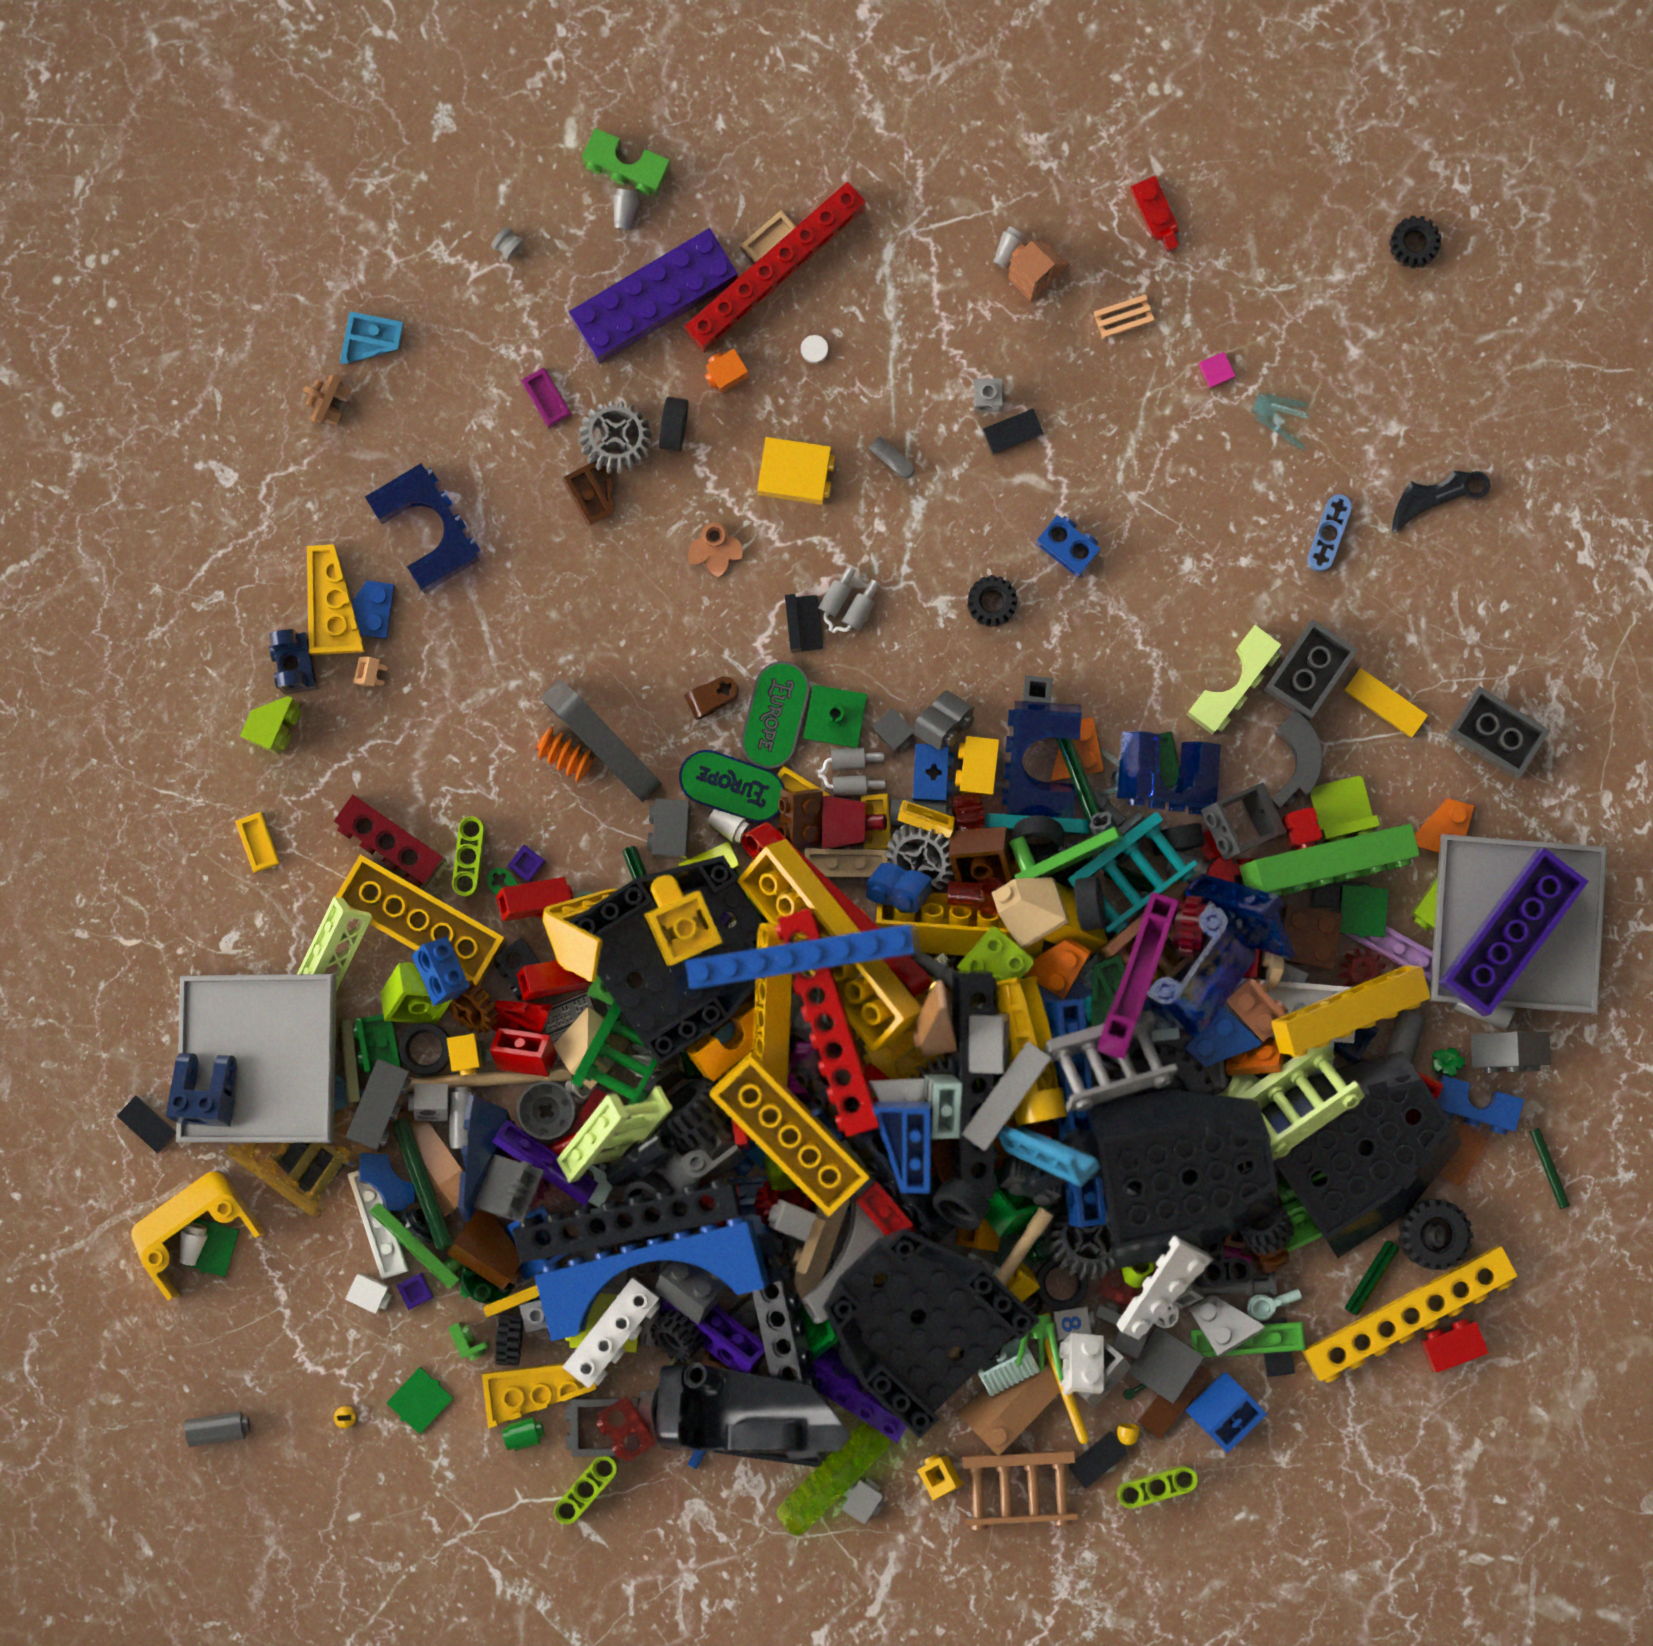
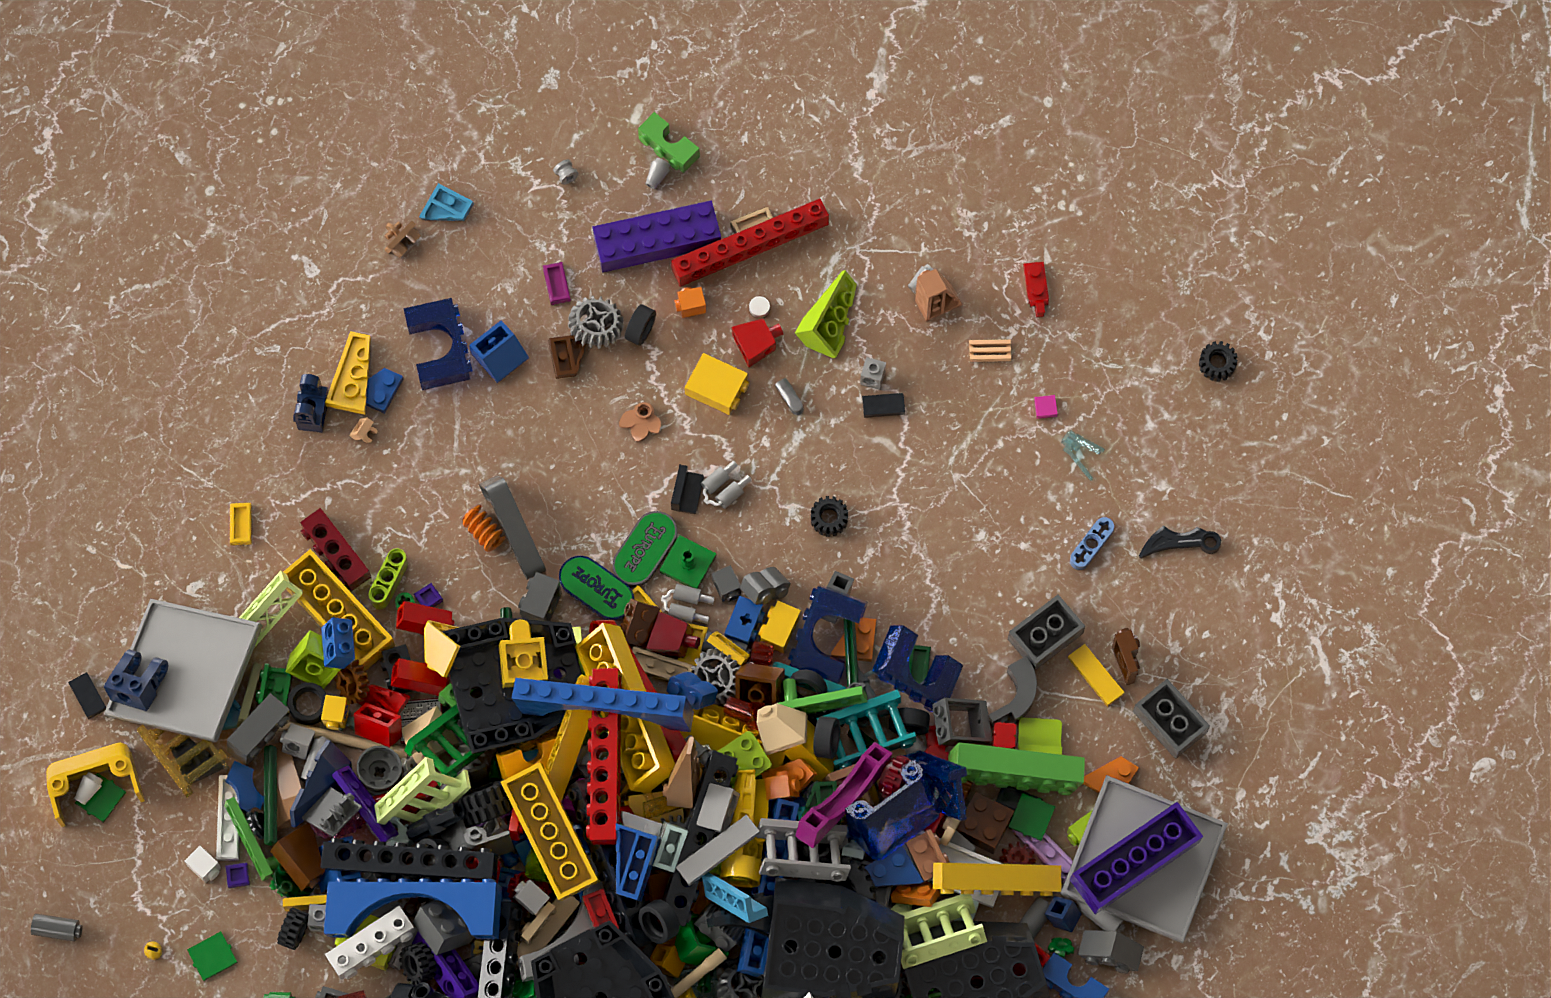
camera: 15 degrees right, 15 degrees down
(270, 724) = (280, 441): lime slope -> none
(462, 1338) = (262, 924): bright green bracket -> none
(505, 515) = (498, 351): none -> blue slope
(527, 1389) = (294, 972): yellow wing -> none
(706, 698) = (601, 520): reddish brown piece -> none
(729, 825) = (583, 613): white cone -> none
(825, 396) = (756, 340): none -> red torso
(904, 346) = (825, 322): none -> lime wedge
(1055, 983) = (782, 786): none -> orange brick
(1063, 551) = (892, 495): blue brick -> none
(1254, 652) = (967, 639): yellowish green arch -> none
(1355, 1050) = (1001, 908): dark blue bracket -> none
(1413, 662) = (1125, 650): none -> reddish brown plate
(1440, 1022) = (1063, 913): none -> dark blue brick

